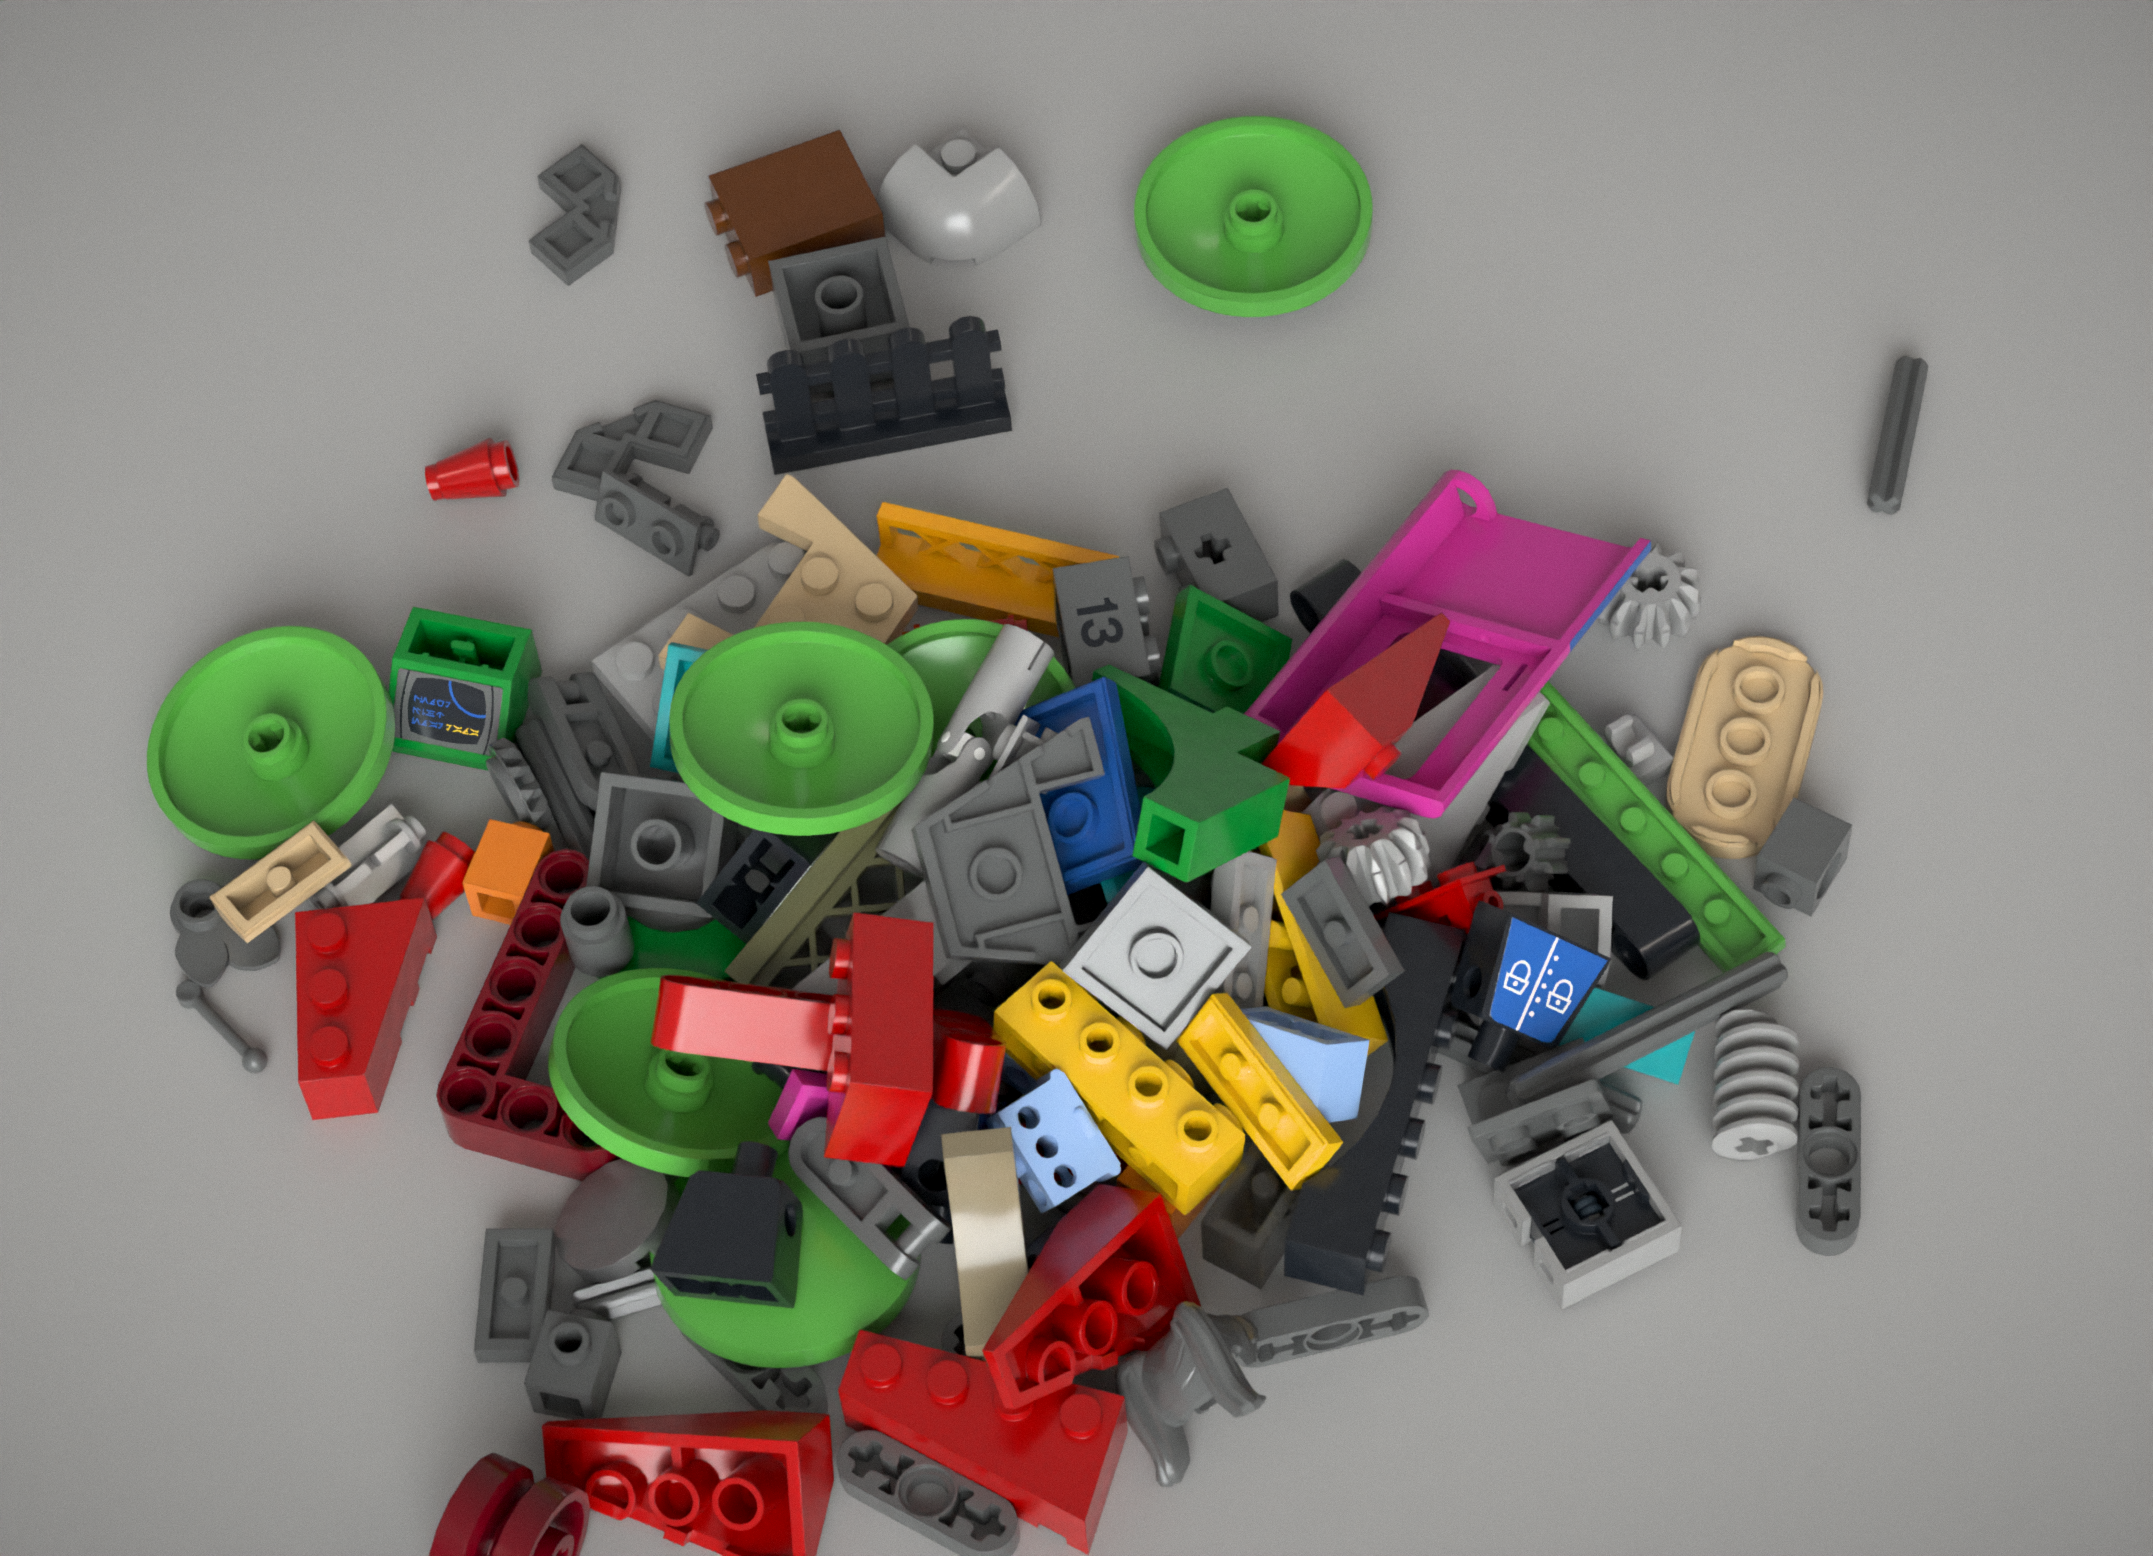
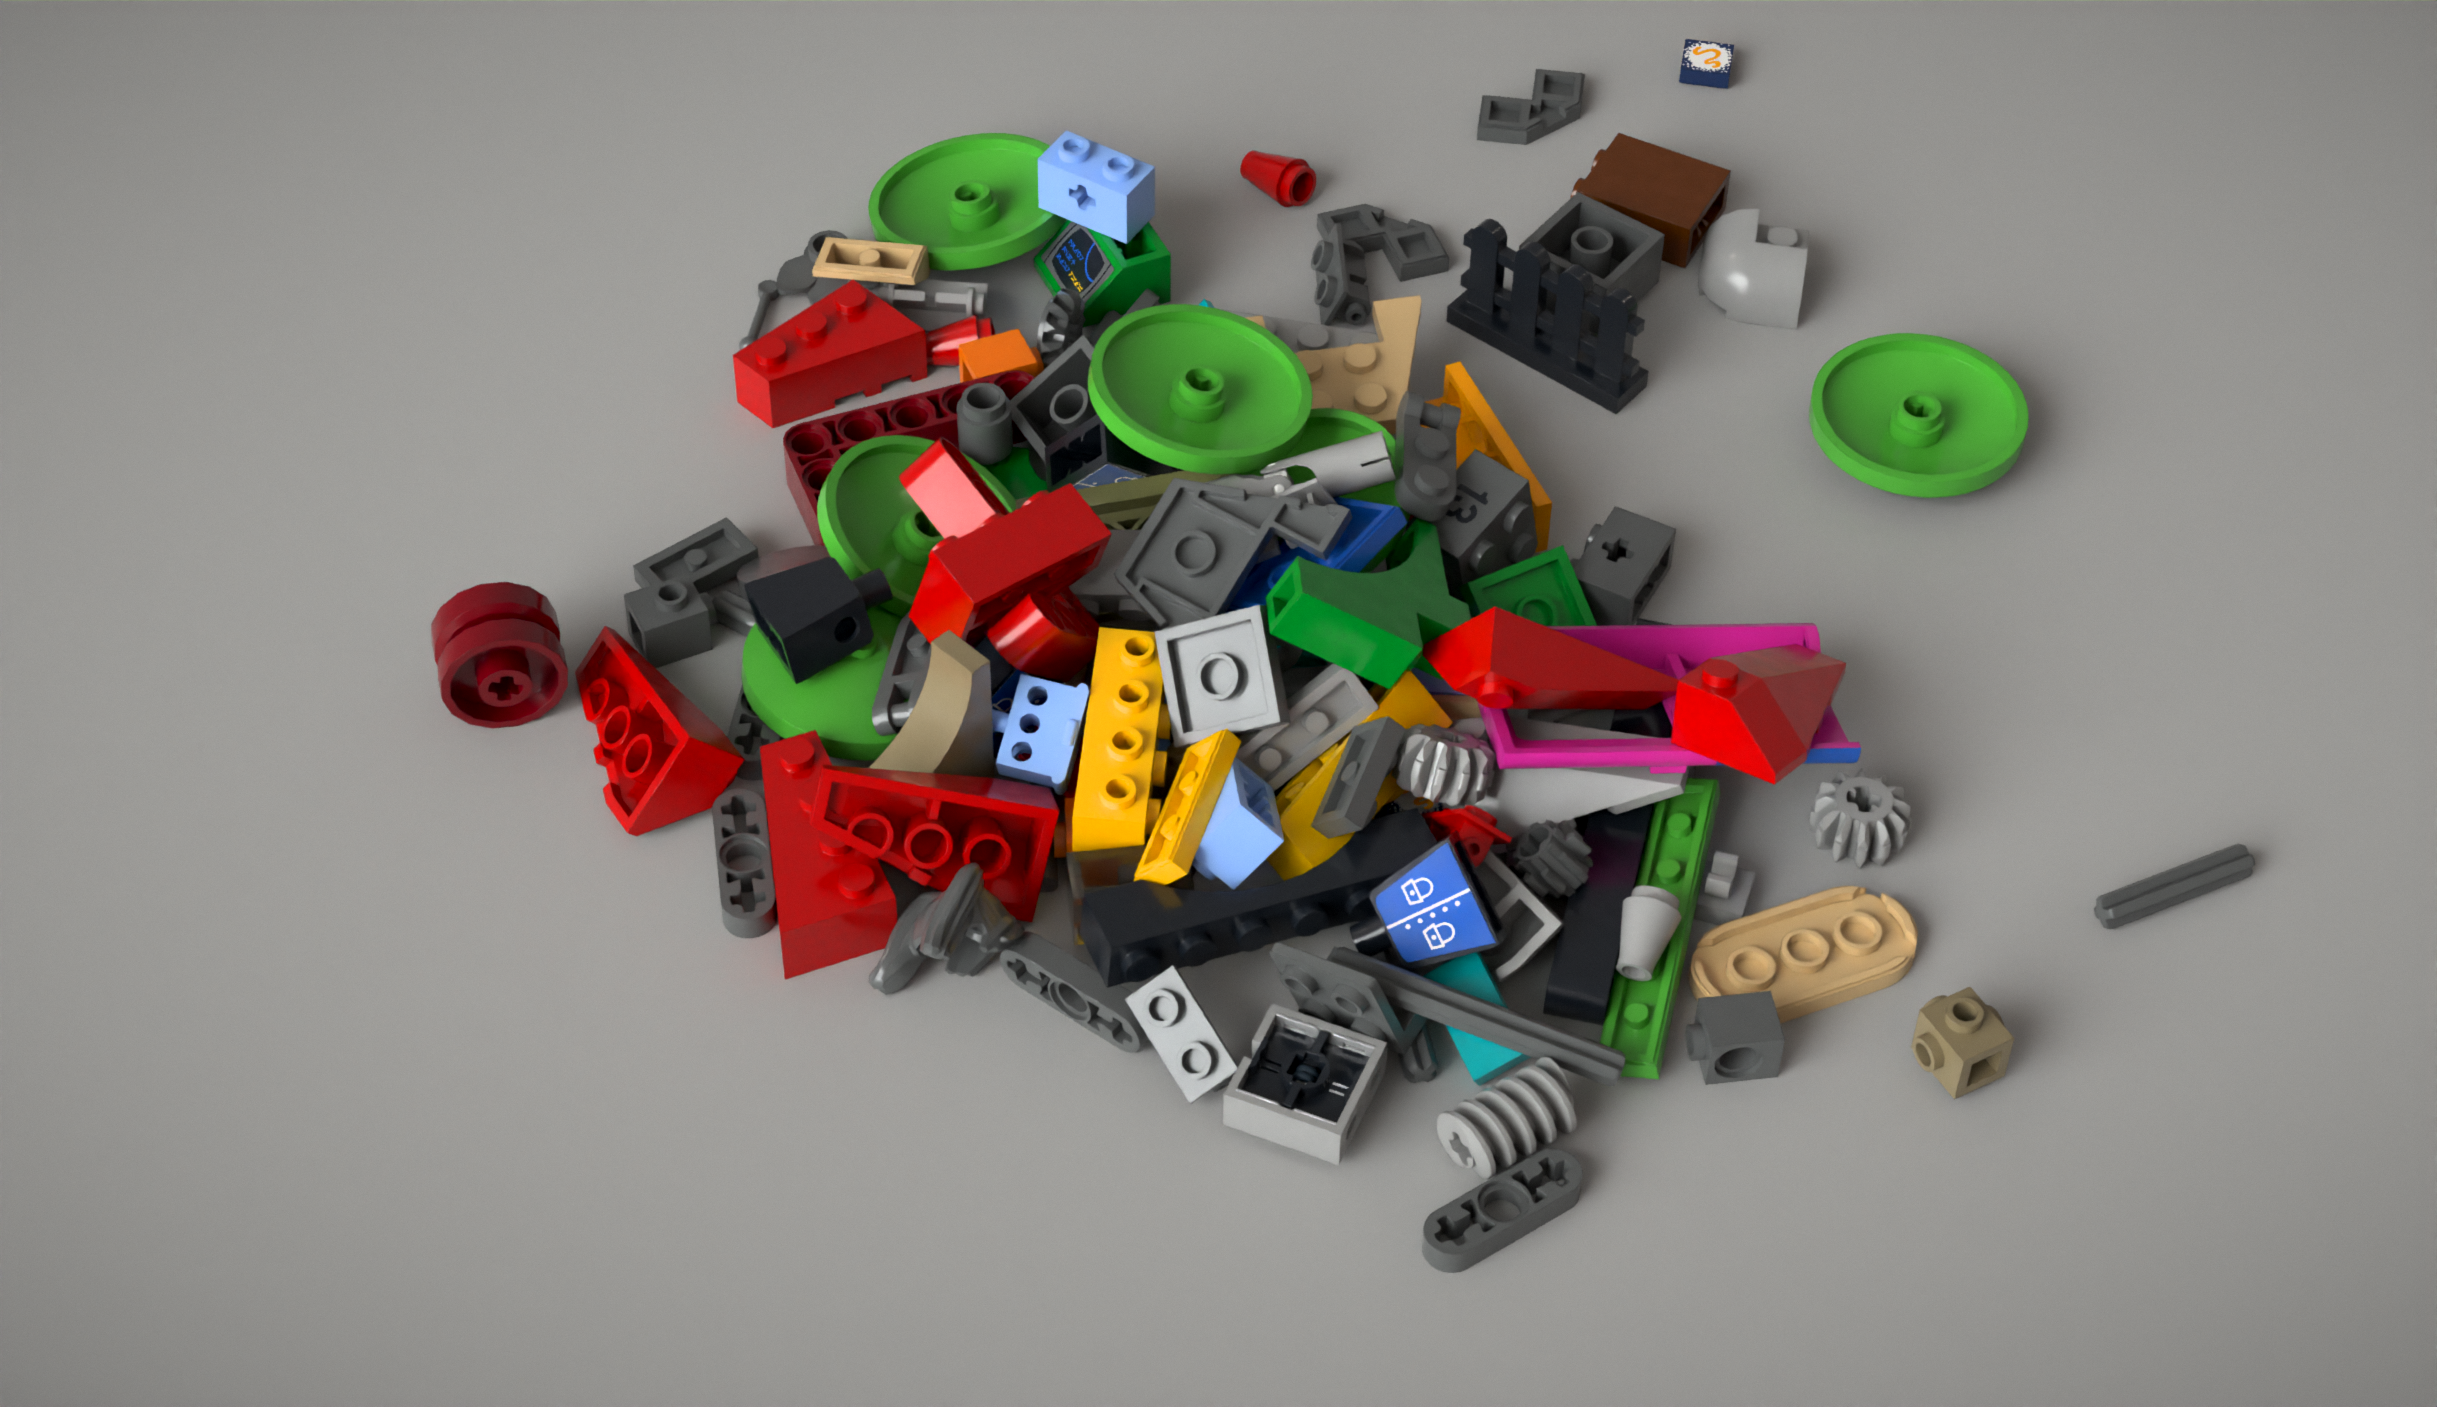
camera: 45 degrees right, 10 degrees down
(408, 628) = (1096, 187): none -> light blue brick
(658, 45) = (1706, 63): none -> tile
(1014, 596) = (1425, 457): none -> dark grey plate
(1462, 1270) = (1183, 1035): none -> hinge
(1554, 579) = (1756, 708): none -> red wedge
(1657, 840) = (1646, 929): none -> light grey cone
(1945, 702) = (1961, 1042): none -> dark tan brick

